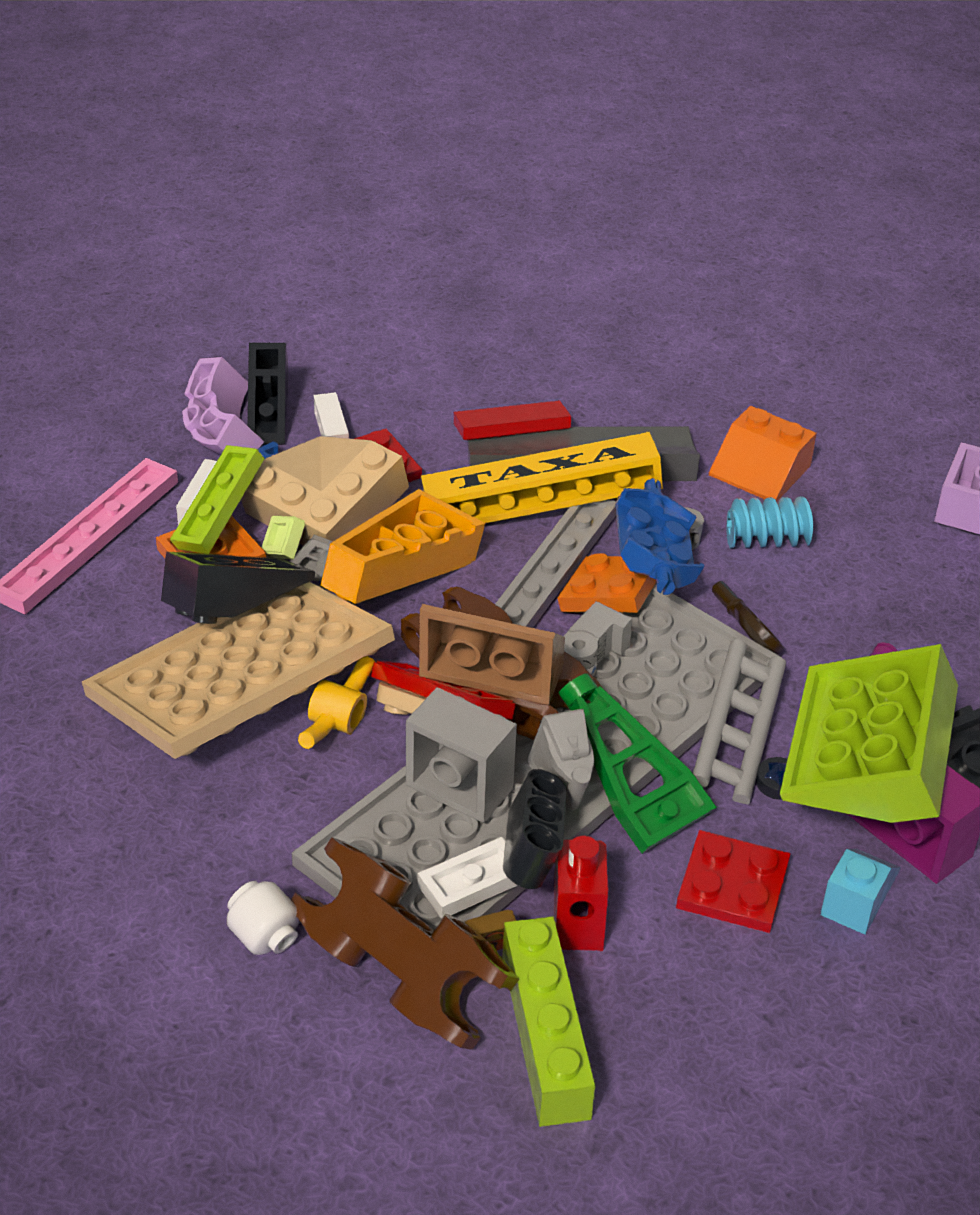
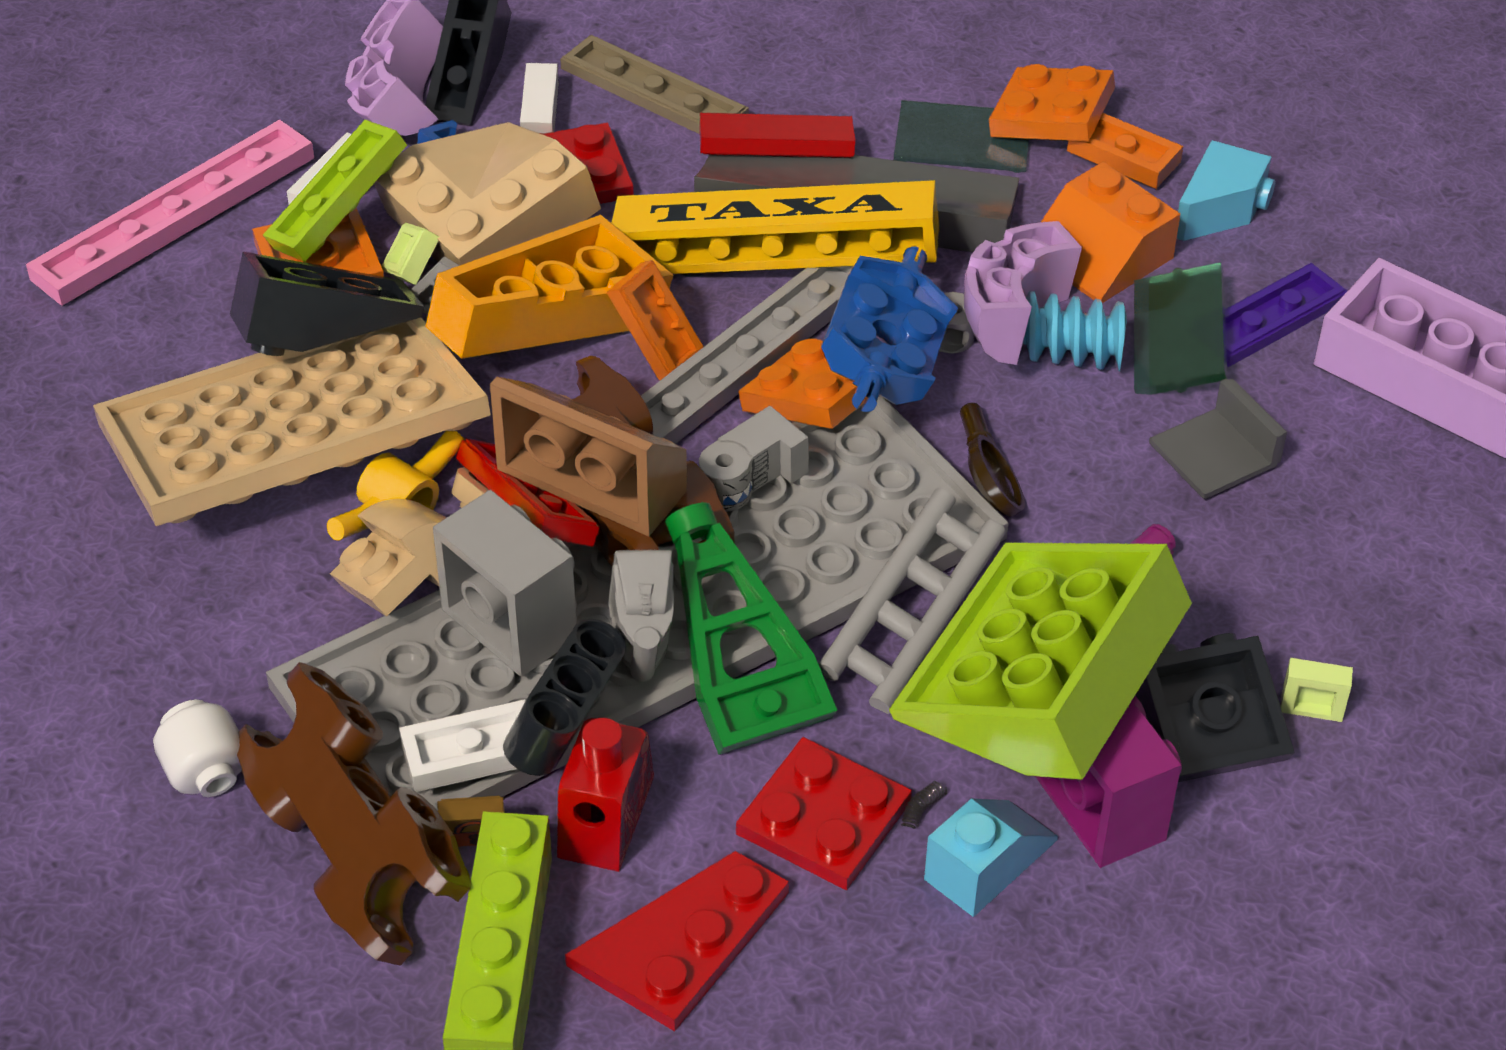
camera: 15 degrees right, 5 degrees up
(360, 751) = (393, 557): none -> tan brick
(401, 399) = (645, 83): none -> dark tan tile
(483, 556) = (654, 318): none -> orange plate
(635, 404) = (955, 138): none -> piece
(669, 991) = (683, 940): none -> red wing
(692, 373) = (1052, 103): none -> orange plate
(723, 495) = (1001, 274): none -> lavender brick
(740, 393) = (1130, 151): none -> orange plate
(796, 867) = (917, 809): none -> clear smoke leg
(833, 414) = (1224, 191): none -> medium azure slope
(840, 511) = (1179, 330): none -> clear green piece
(891, 493) = (1278, 311): none -> dark purple tile
(901, 580) = (1223, 444): none -> dark grey piece

